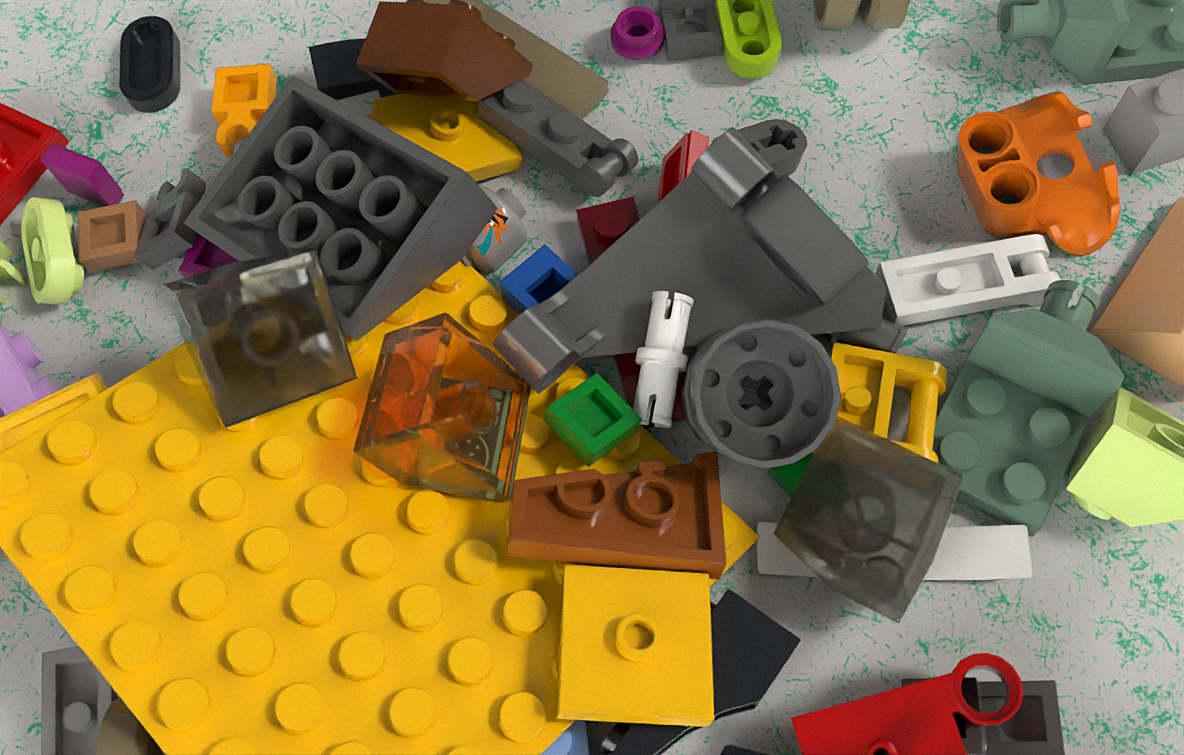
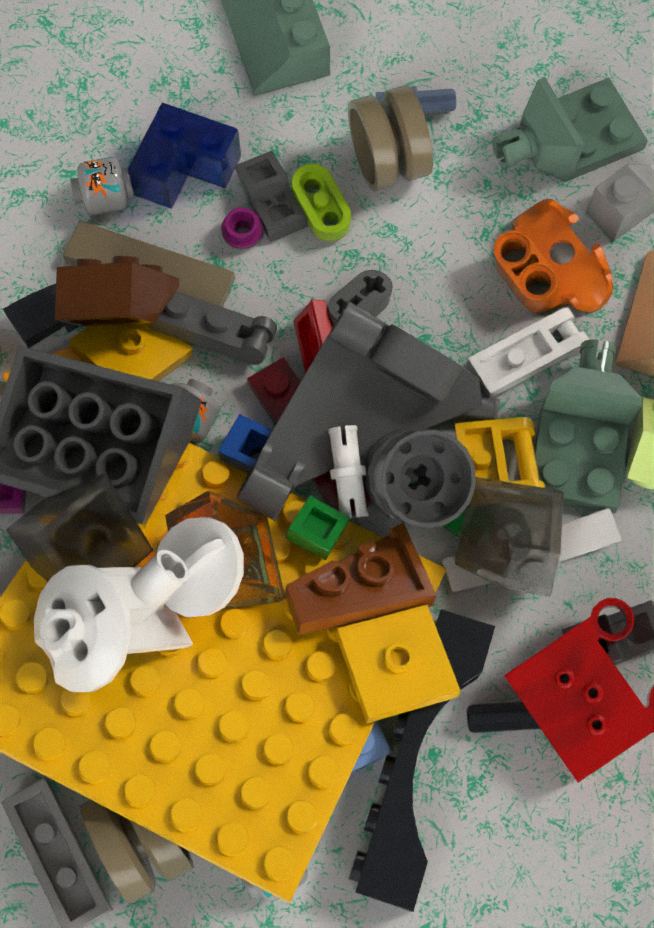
camera: 25 degrees left, 5 degrees up
(280, 441) = (99, 615): none -> white piece

